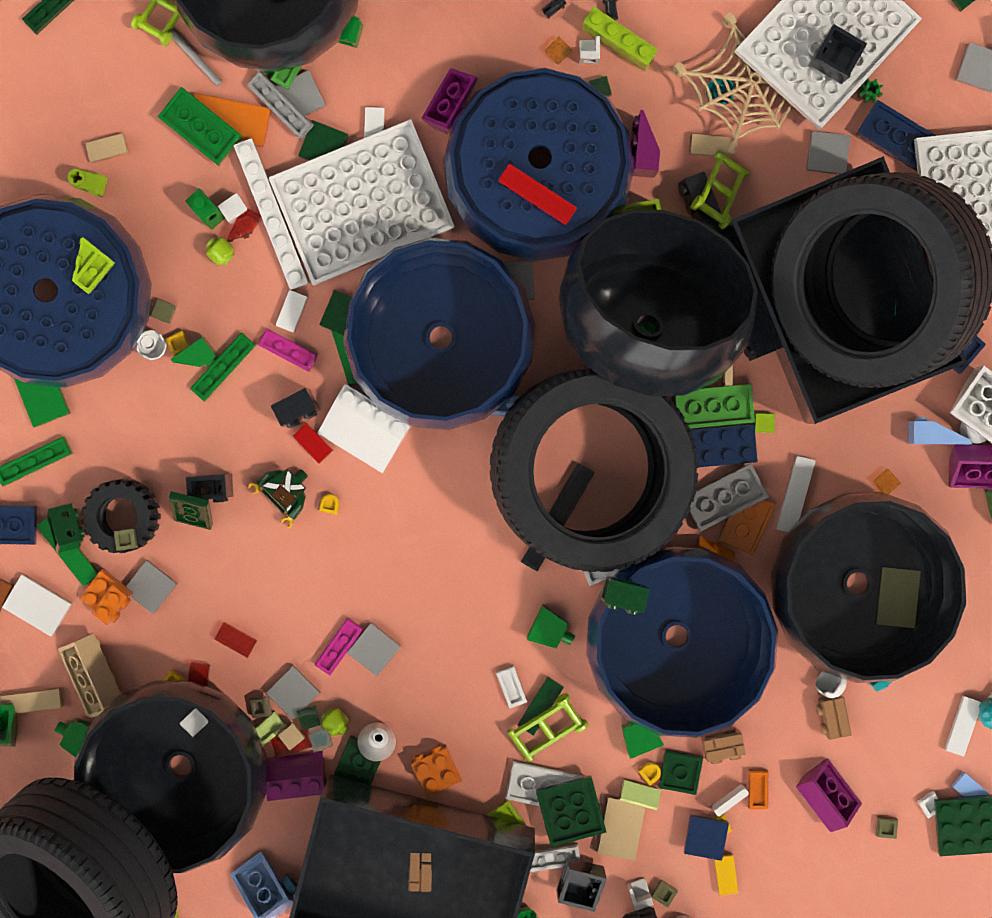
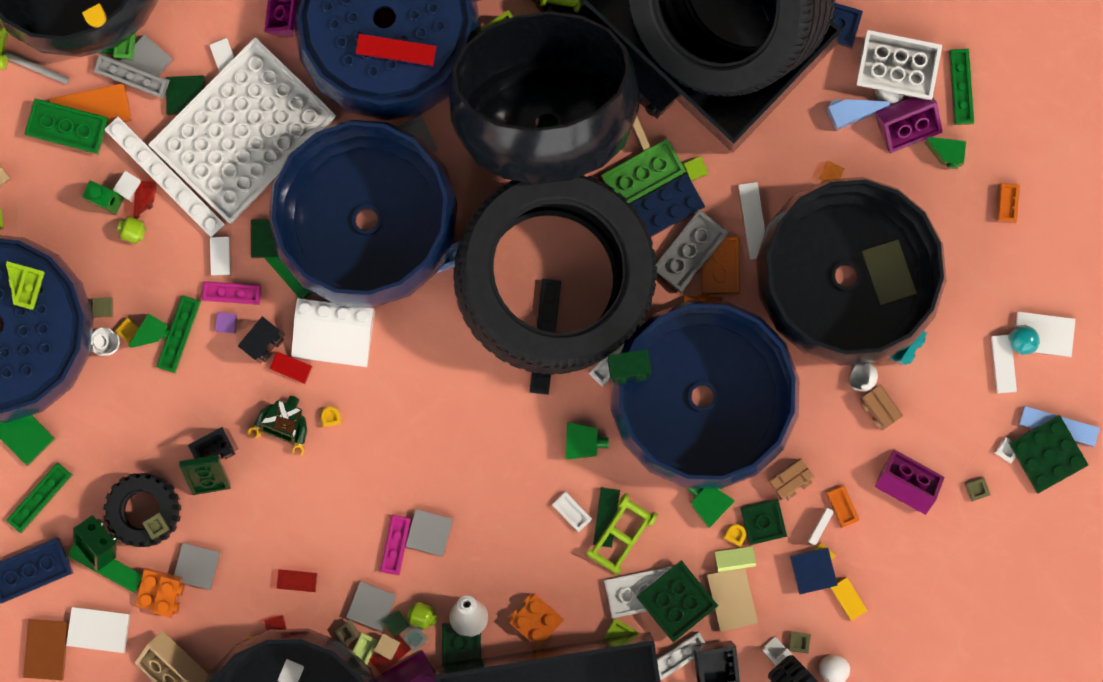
camera: 20 degrees left, 5 degrees down
(265, 35) = (95, 16): none -> yellow tile
(270, 375) = (226, 322): none -> medium lavender tile

